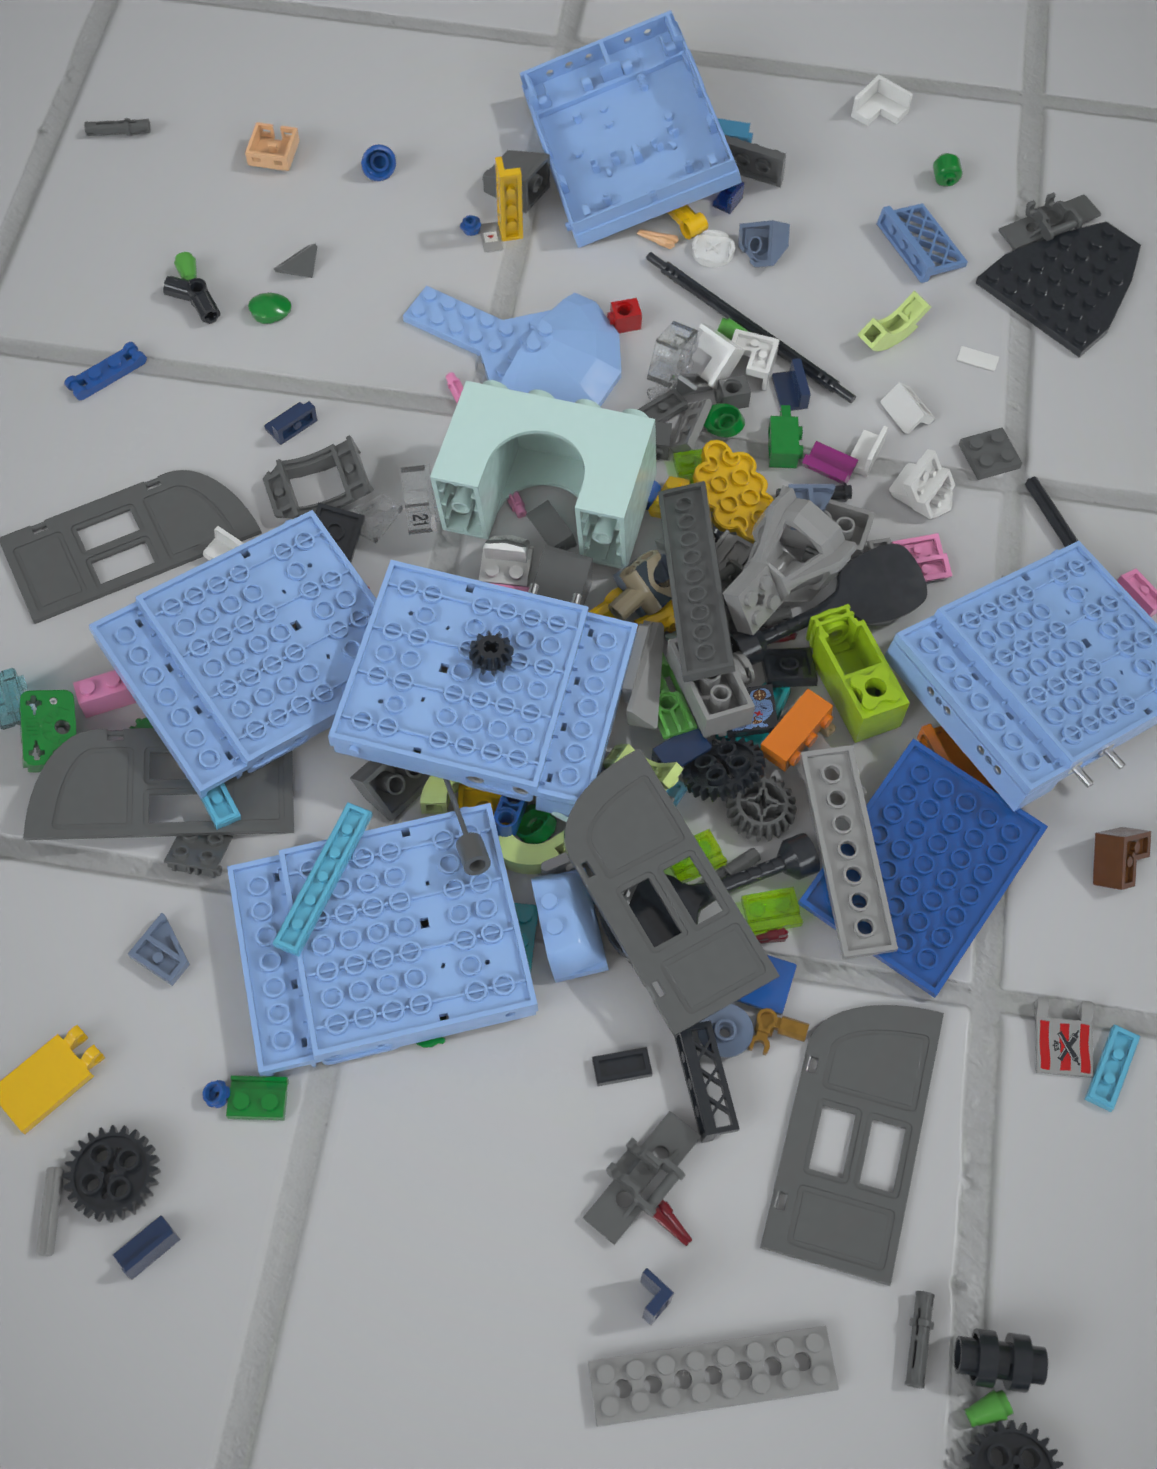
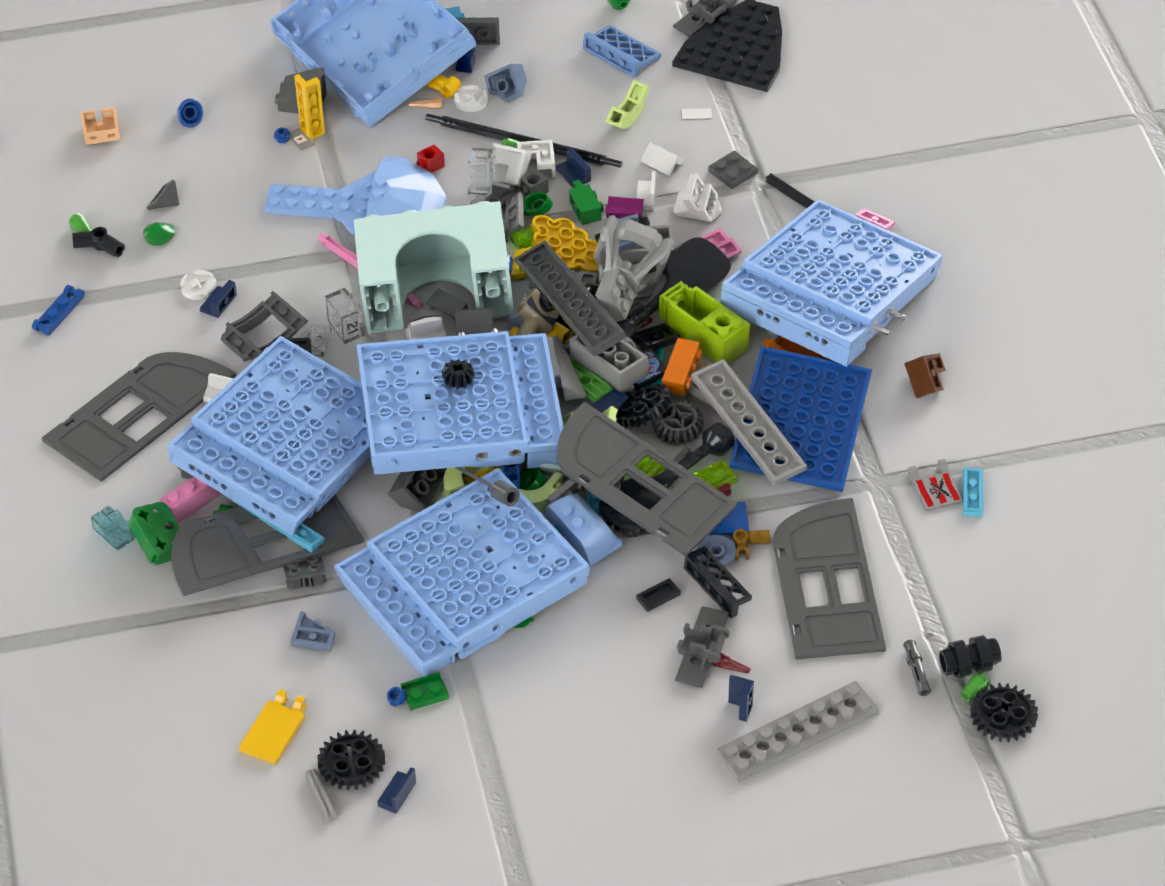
camera: 20 degrees left, 15 degrees down
(279, 392) = (198, 285): none -> white tile
(322, 879) = (408, 545): medium azure tile -> none

